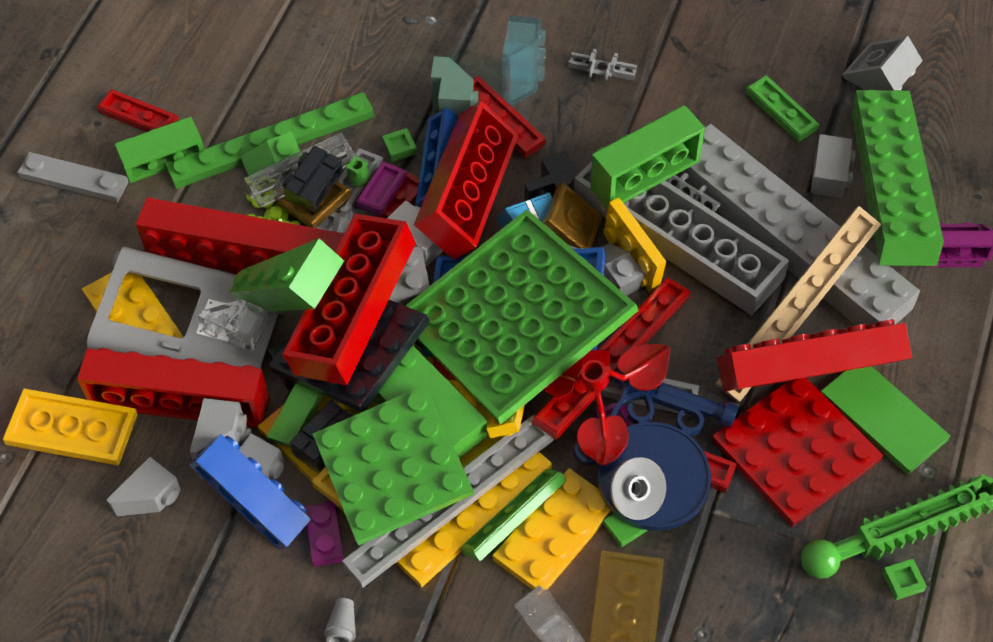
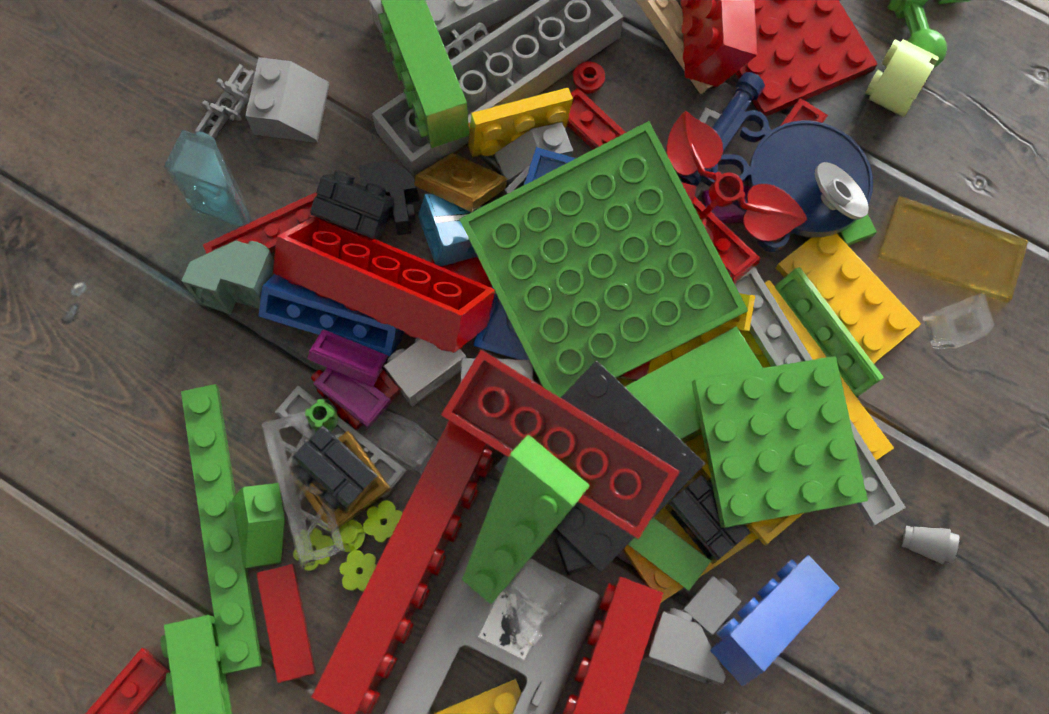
camera: 80 degrees left, 15 degrees up
(211, 190) = (286, 623): none -> red tile
(324, 534) = (823, 544): magenta plate -> none
(399, 144) = (281, 362): bright green plate -> none
(406, 175) = (347, 357): none -> magenta tile
(528, 150) = (352, 205): none -> black brick
(612, 98) = (286, 101): none -> light grey slope
(703, 304) = (589, 85): none -> red plate
(776, 533) = (903, 77): none -> yellowish green brick

